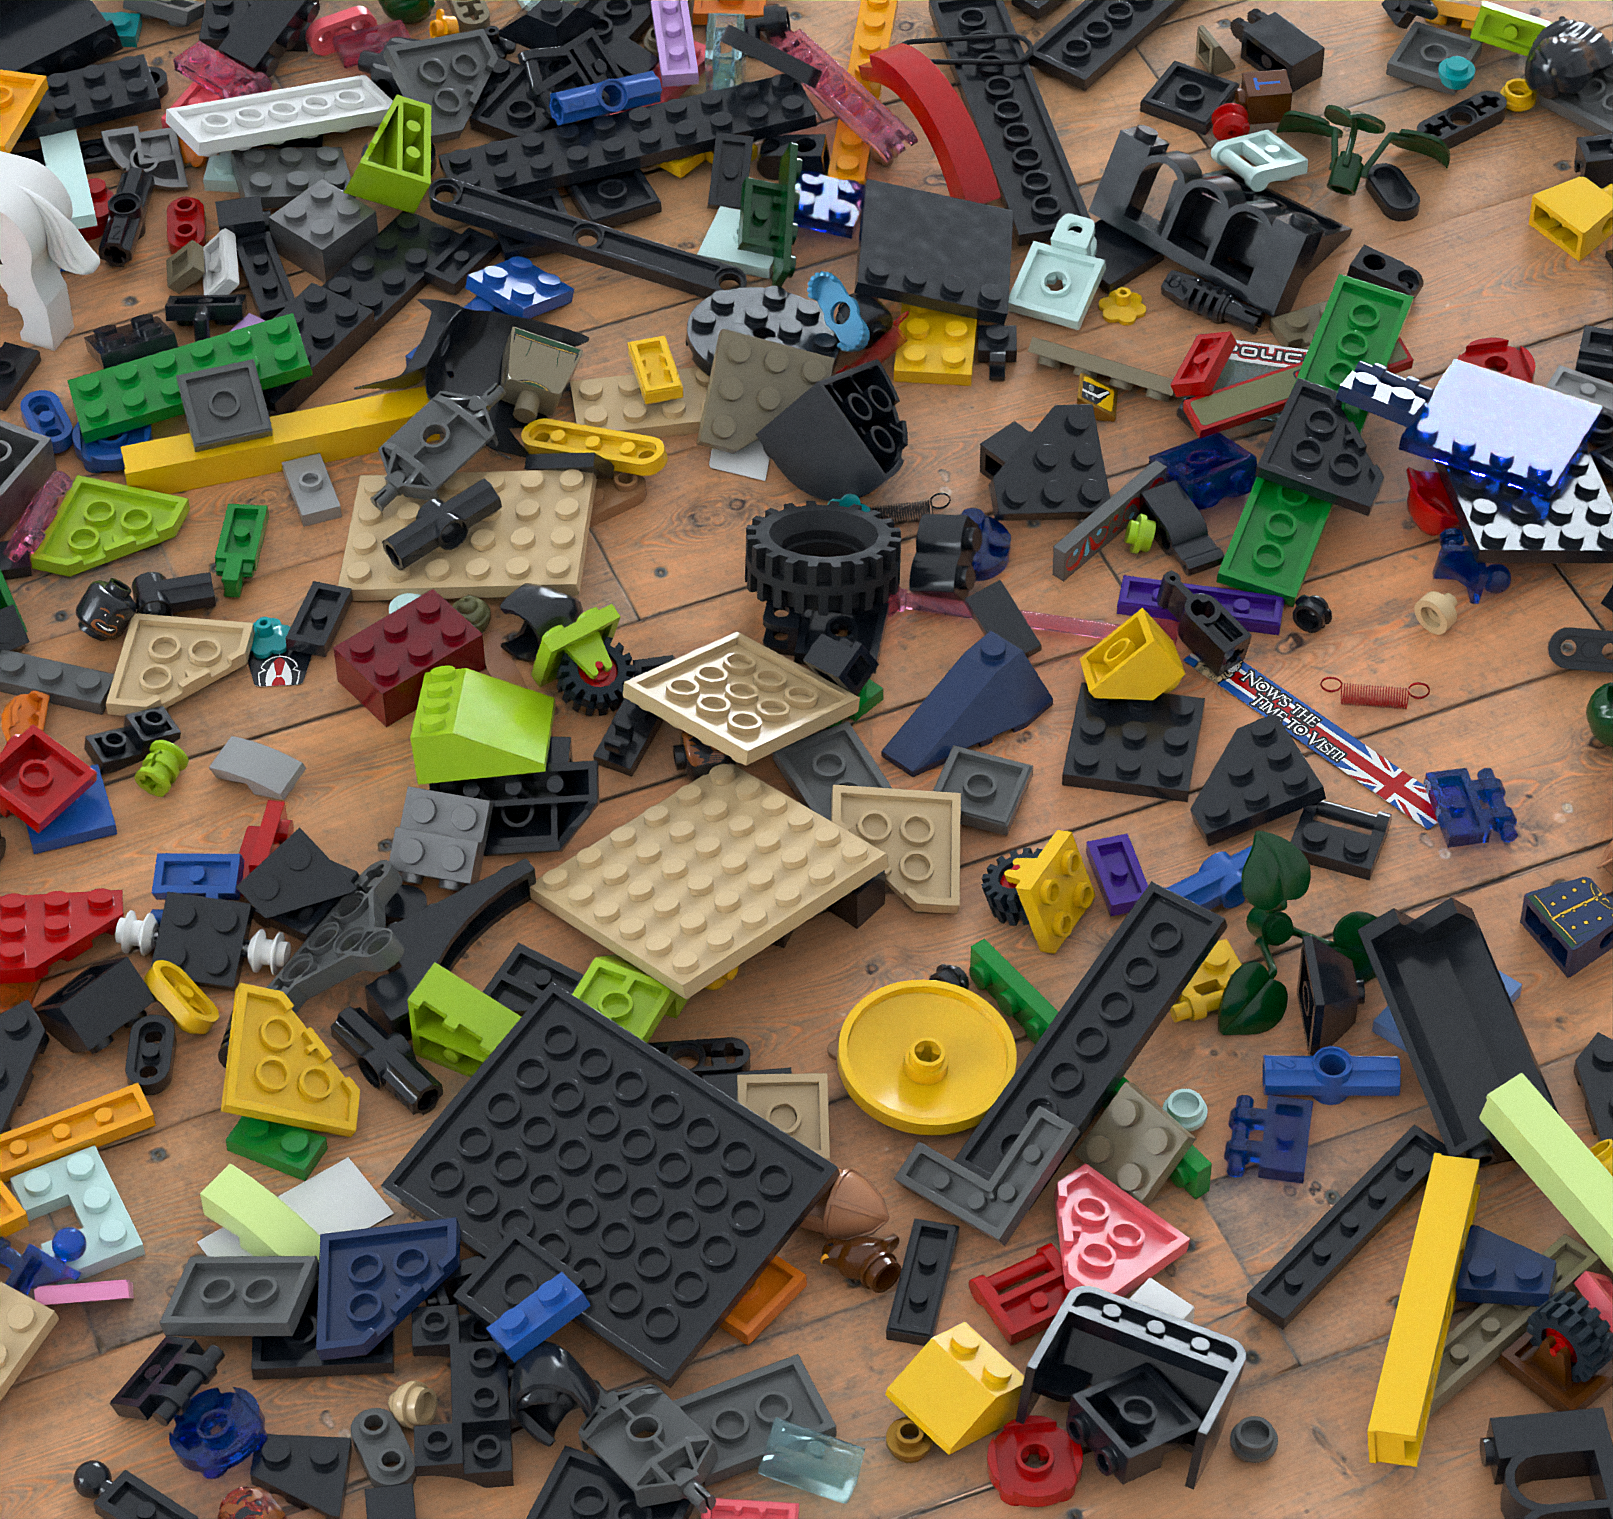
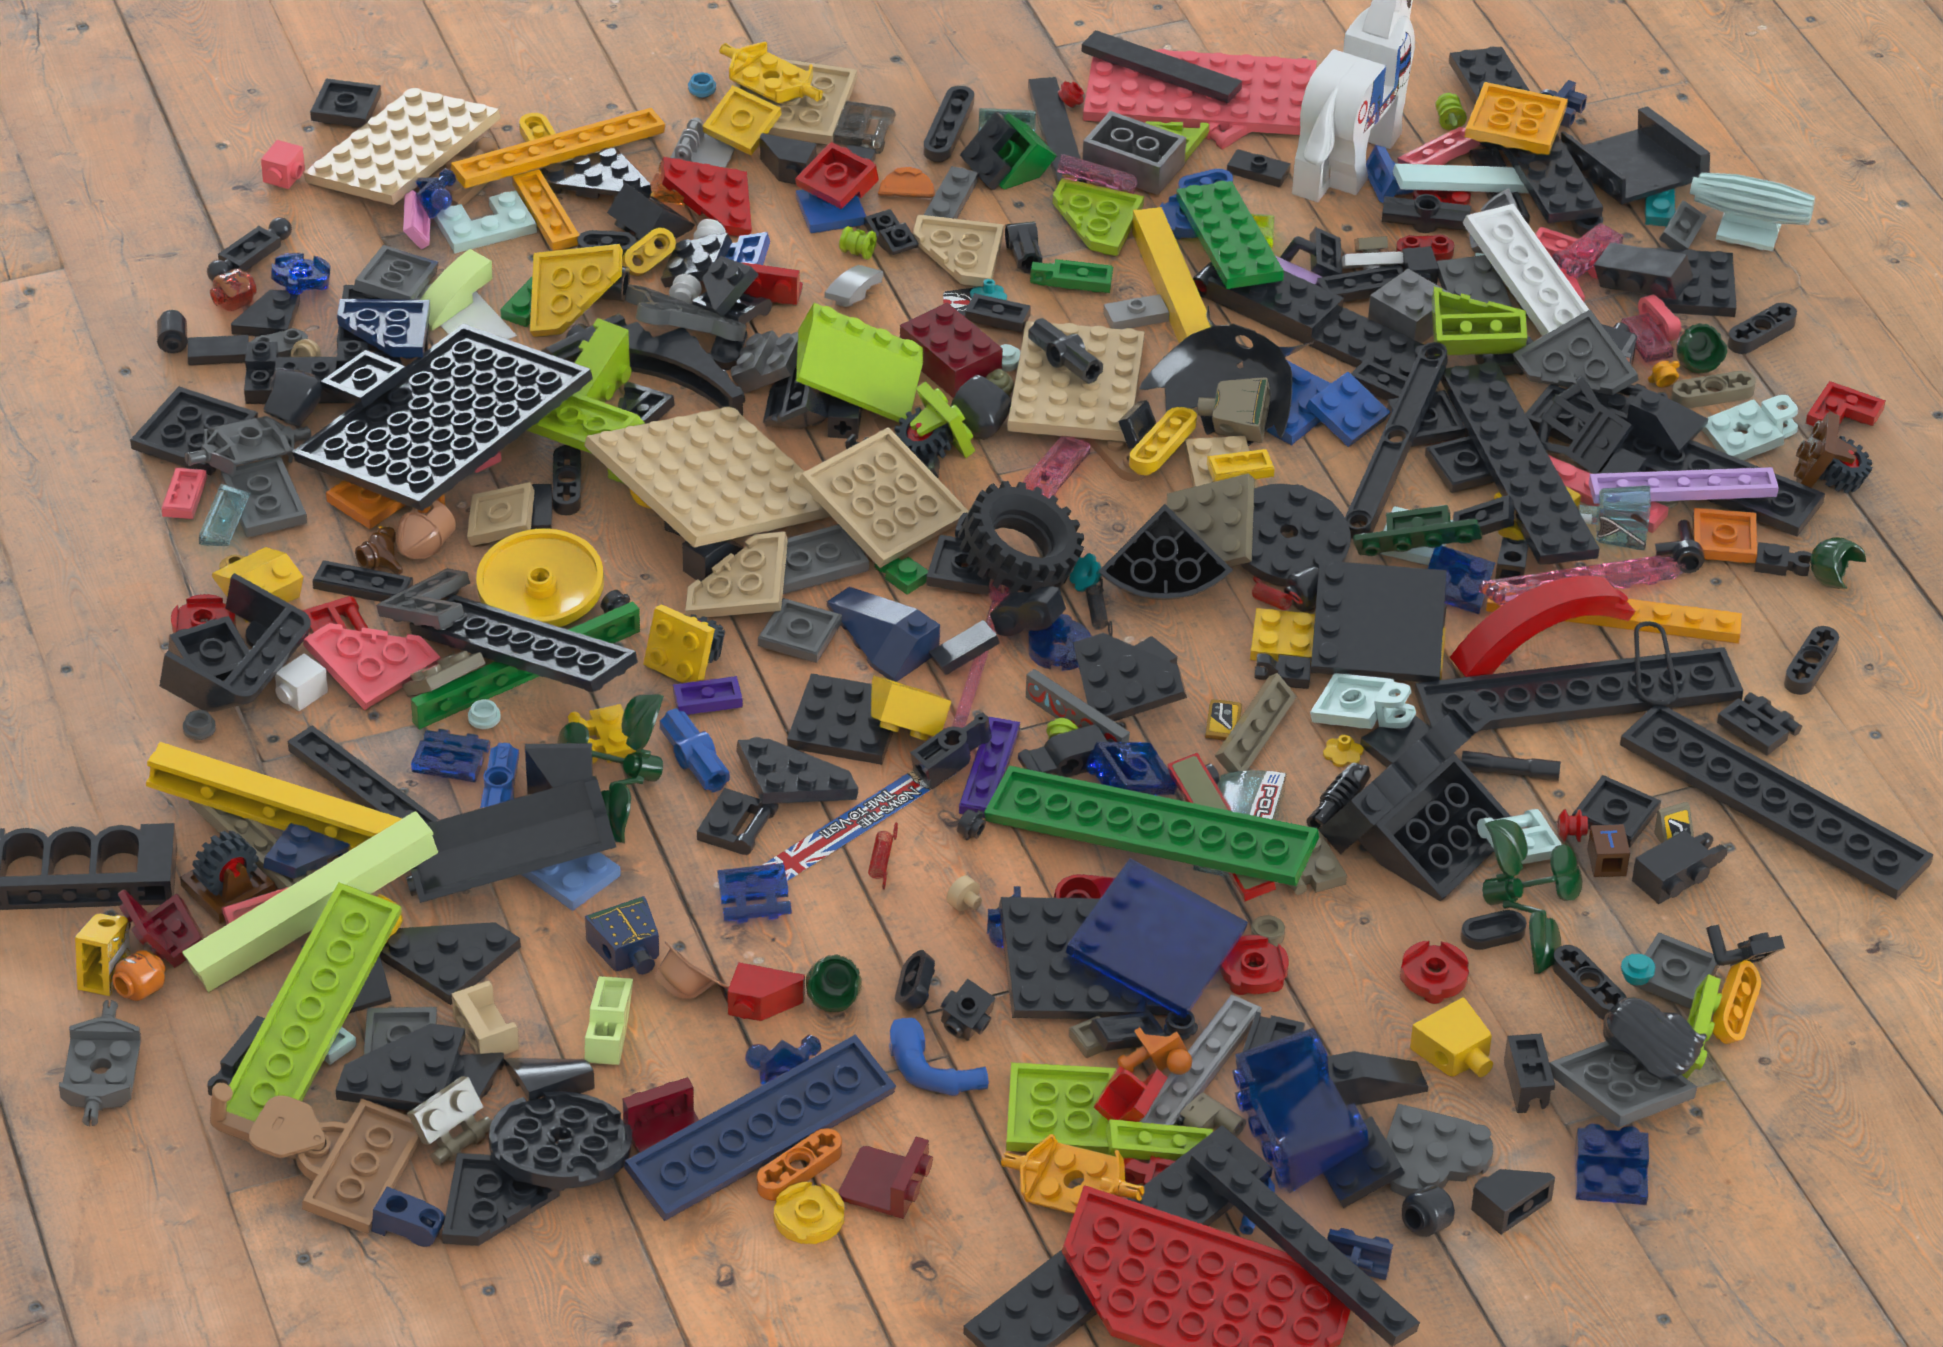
camera: 90 degrees right, 5 degrees down
(105, 609) = (1005, 208): black head -> none
(130, 342) = (1281, 214): black plate -> none
(167, 1380) = (339, 251): black plate -> none
(224, 405) = (1187, 242): dark grey plate -> none
(422, 468) = (1147, 345): dark grey plate -> none
(538, 1316) = (331, 374): blue plate -> none
(587, 100) = (1566, 452): blue piece -> none
(641, 554) = (1057, 465): none -> clear pink plate
(771, 56) = (1601, 501): black beam -> none
(830, 293) = (1325, 550): dark azure piece -> none
(841, 662) = (919, 542): black brick -> none
(1203, 364) = (1226, 761): red plate -> none
(1320, 451) = (1119, 811): black plate -> none
(1385, 271) = (1366, 901): black leg -> none
(1385, 393) = (1165, 840): dark blue plate -> none
(1431, 364) = (1269, 927): none -> dark tan tile
(1454, 236) = (1434, 985): none -> red plate

